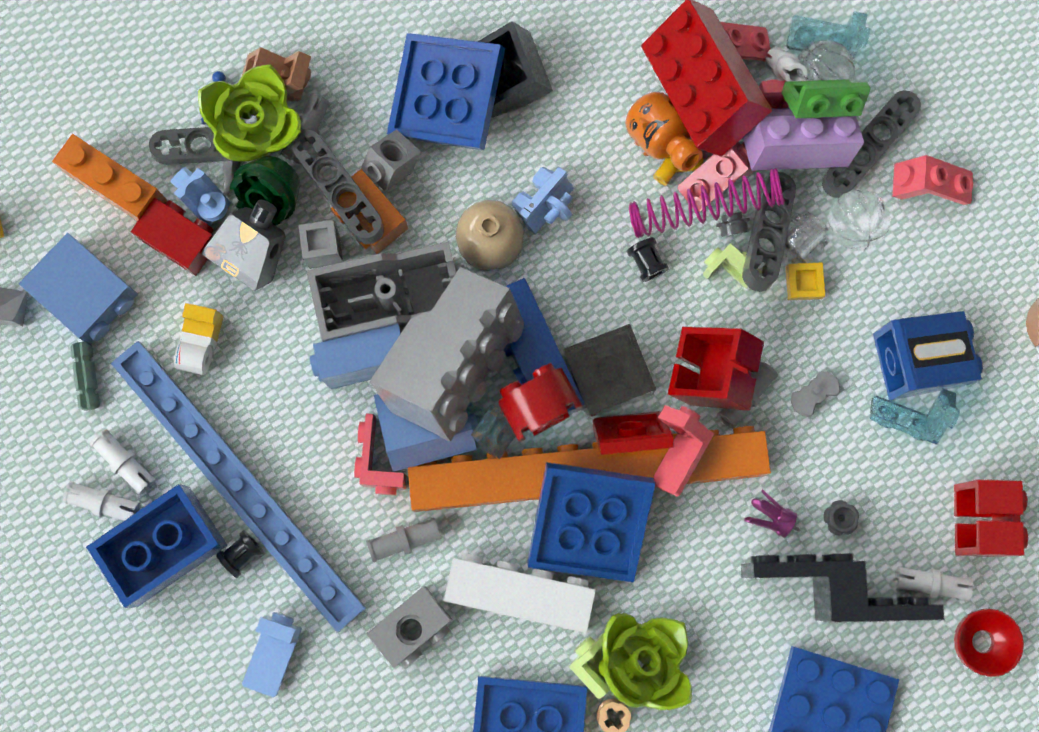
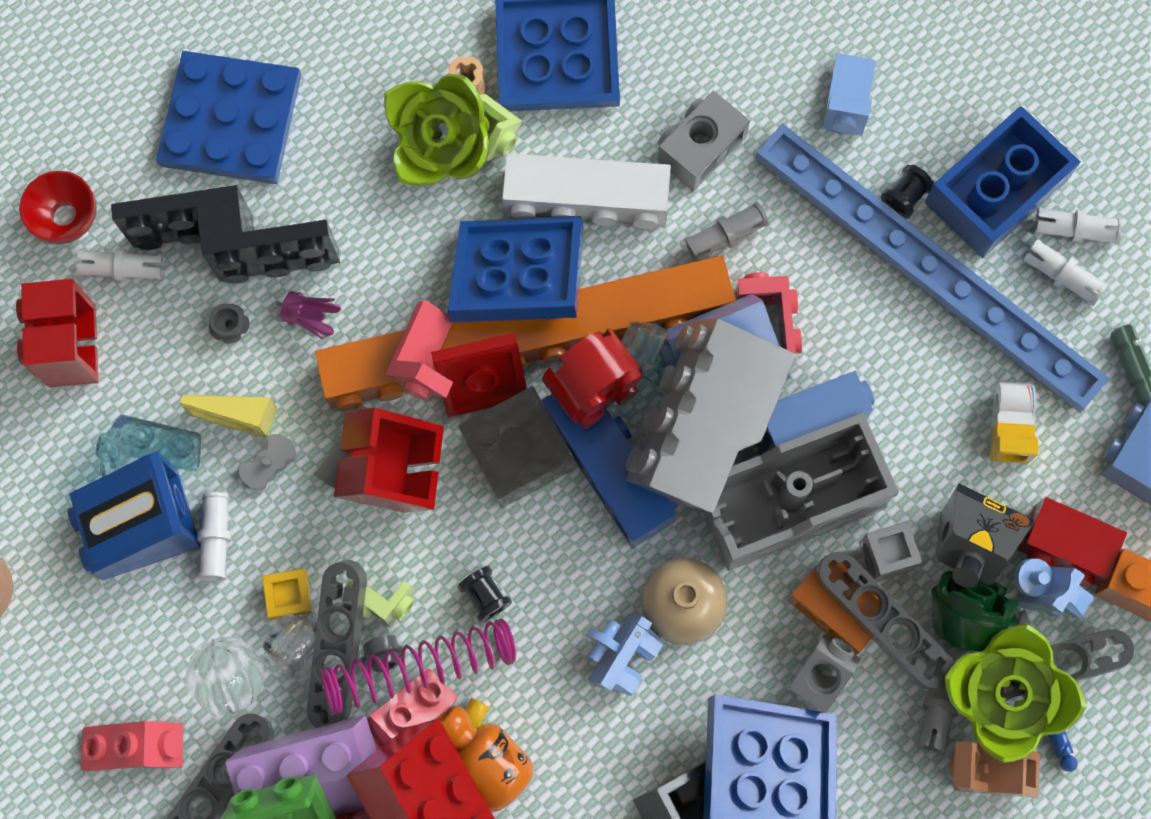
camera: 175 degrees right, 5 degrees down
(837, 434) = (240, 413): none -> light yellow slope
(862, 335) = (214, 536): none -> white pin

